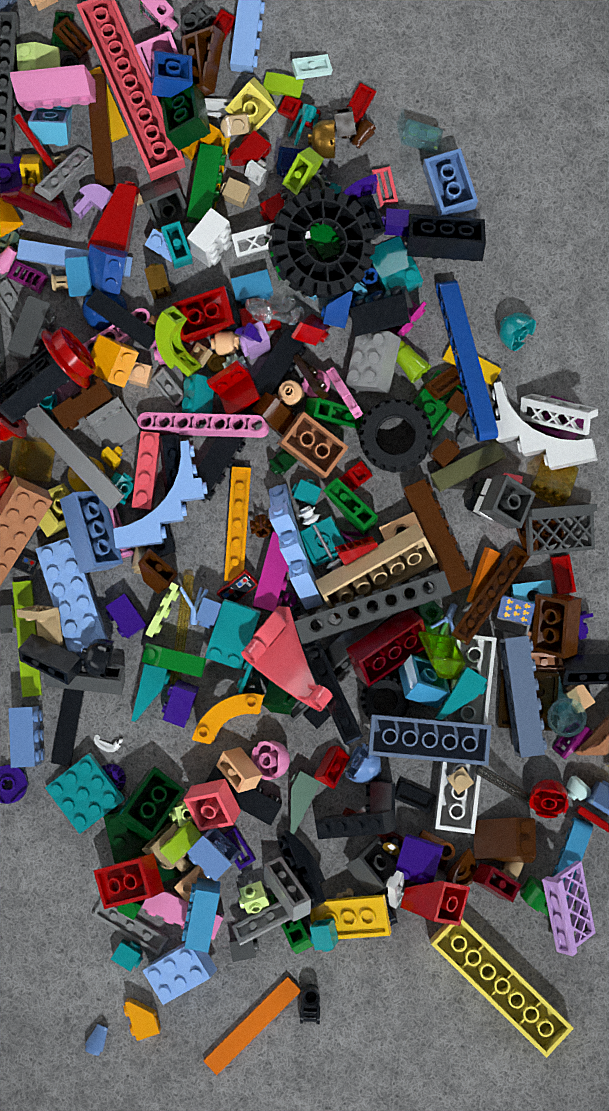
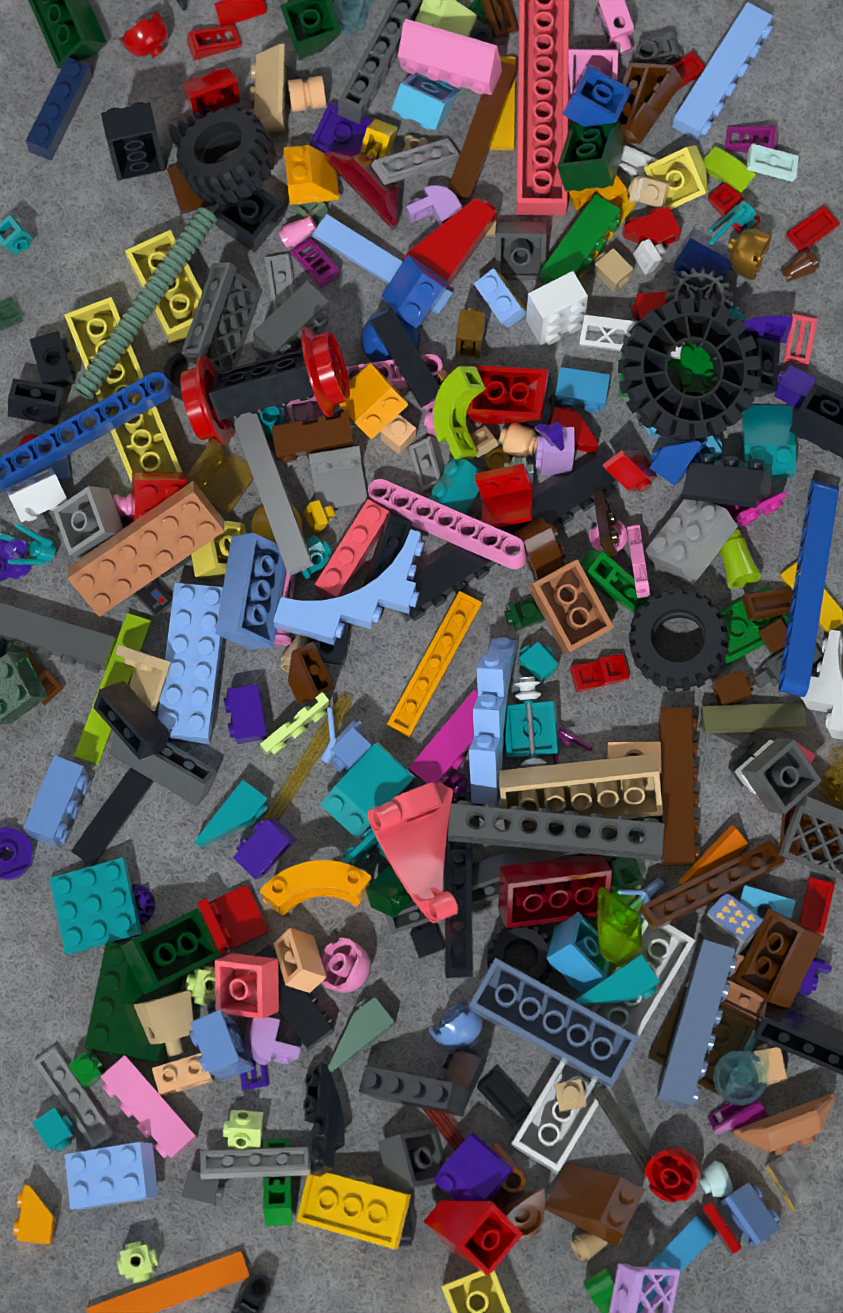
camera: 25 degrees right, 10 degrees down
(34, 141) = (397, 110): red bar -> none
(55, 282) = (353, 286): tan bush -> none
(78, 276) = (376, 286): dark azure slope -> none
(97, 657) = (191, 741): black cylinder -> none
(107, 746) = (148, 863): white piece -> none
(129, 881) = (101, 1031): red slope -> none
(173, 659) = (281, 790): green slope -> none
(177, 245) = (512, 298): teal brick -> none
(180, 760) = (233, 919): none -> red bracket
(181, 842) = (178, 1016): lime slope -> none
(201, 914) = (171, 1111): dark azure brick -> none
(223, 1010) = (146, 1267): none -> yellowish green brick
(238, 587) = (402, 738): tile -> none
(239, 836) = (261, 1042): none -> lavender brick
(261, 526) = (463, 678): reddish brown gear -> none
(283, 312) = (609, 435): clear piece -> none
(287, 889) = (292, 1132): light grey brick -> none
(296, 396) = (572, 541): light nougat head -> none
(299, 45) = (752, 131): none -> magenta slope
(302, 170) = (704, 274): lime slope -> none
(324, 934) = (311, 1214): teal brick -> none
(332, 766) = (417, 1011): red slope -> none
(344, 122) = (783, 243): brick -> none
(351, 506) = (585, 703): green slope -> none
(353, 550) = (562, 753): red slope -> none
(368, 283) = (735, 432): blue bush -> none
(392, 846) = (446, 1143): tile -> none
(395, 889) = (428, 1196): white plate -> none
(496, 882) = (559, 1249): dark red brick -> none

